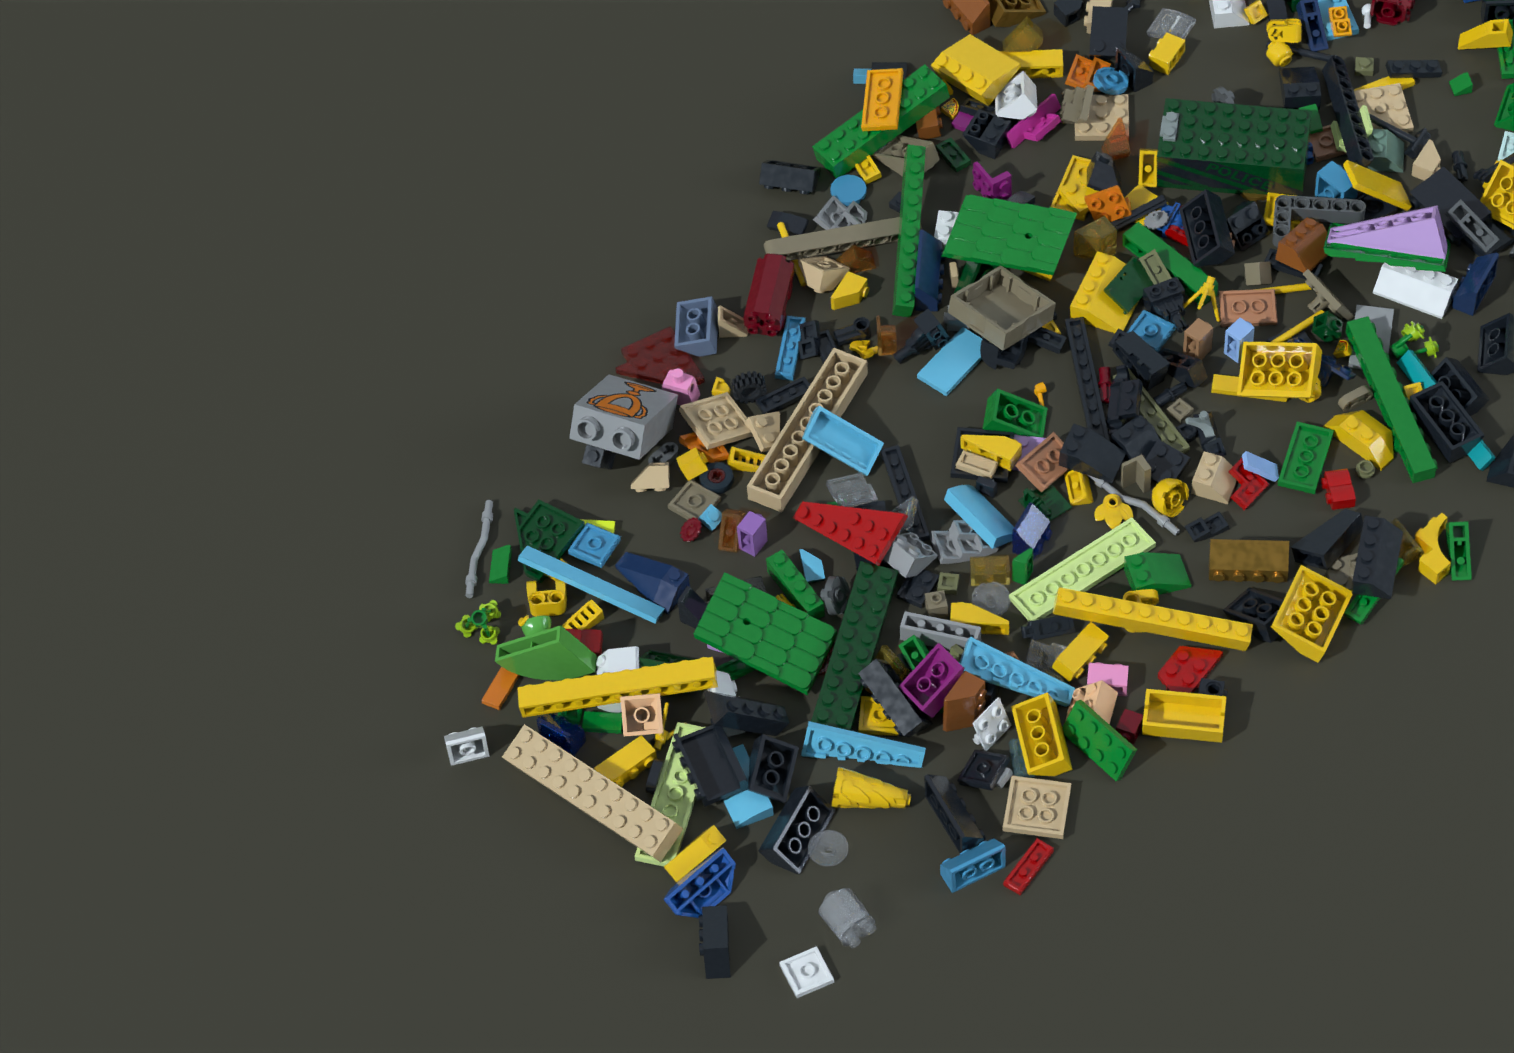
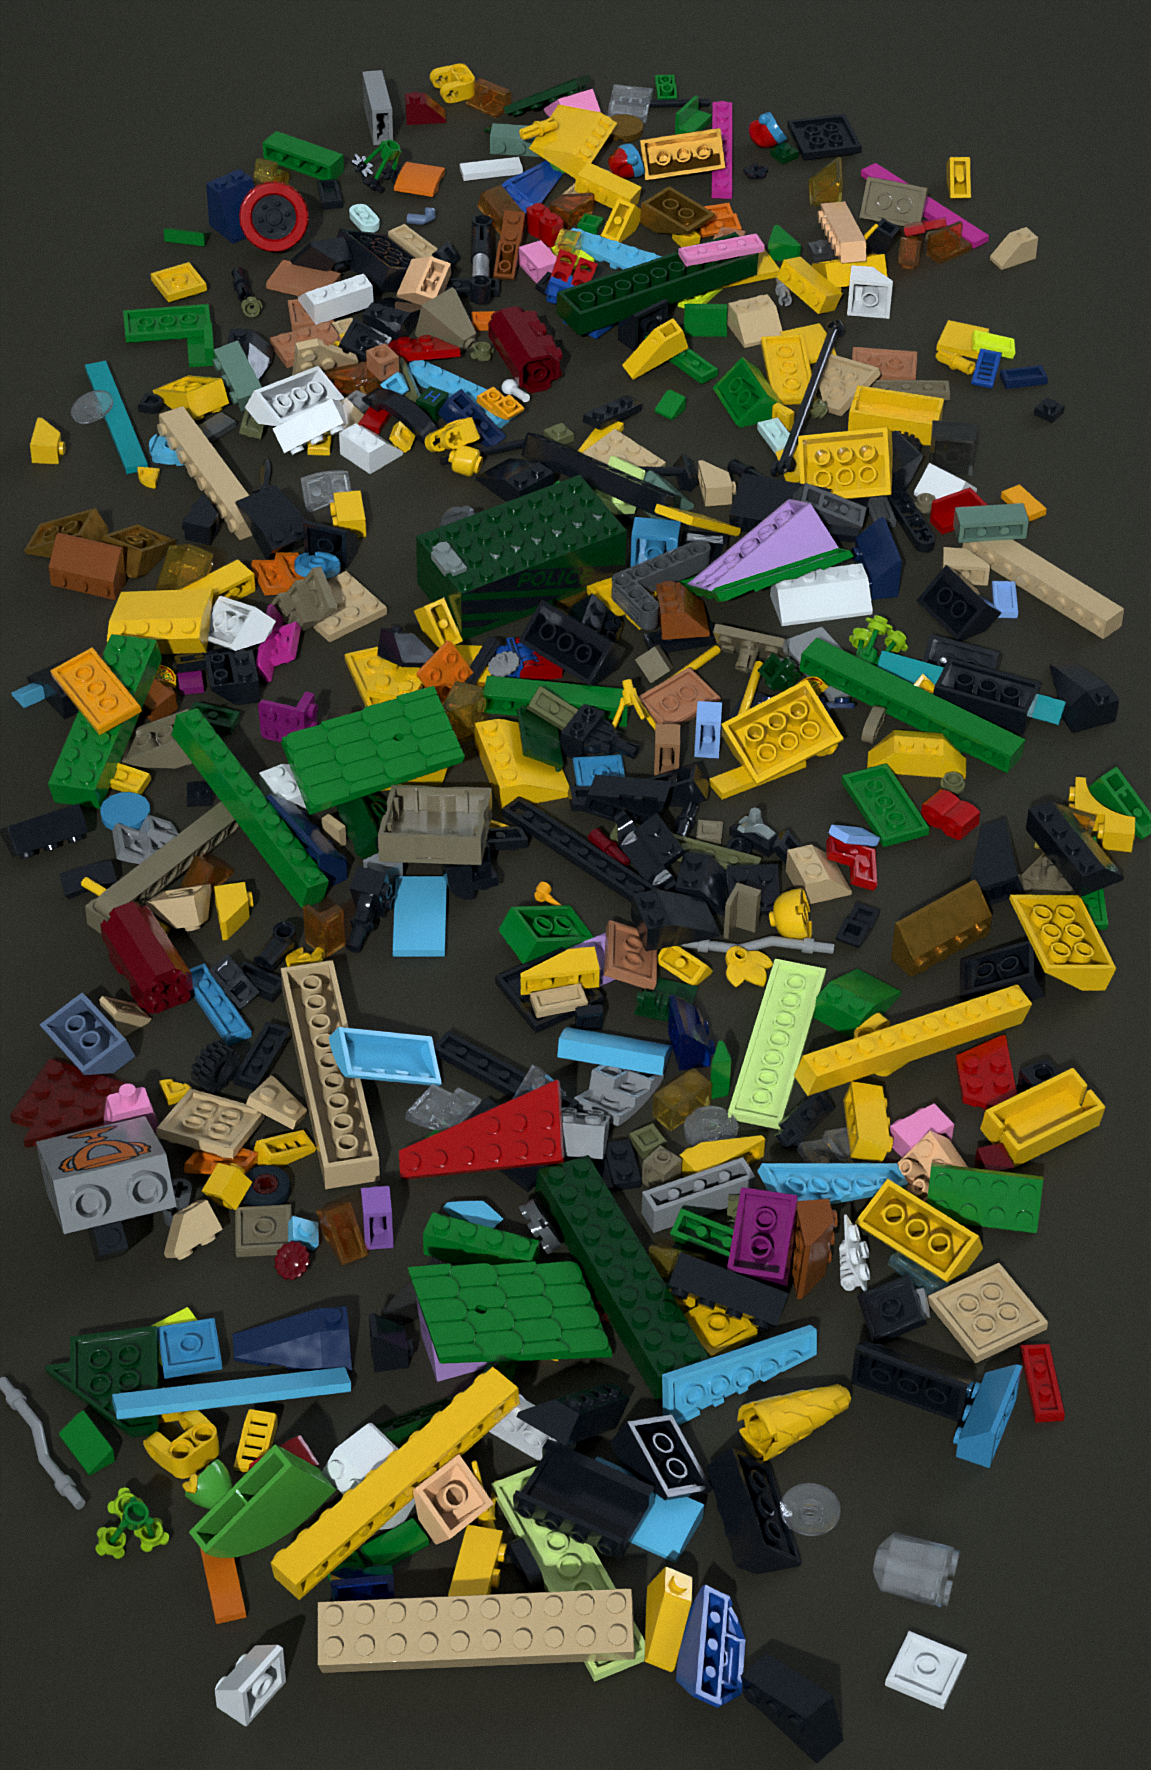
camera: 45 degrees left, 10 degrees down
(1116, 142) = (382, 612): clear orange slope -> none

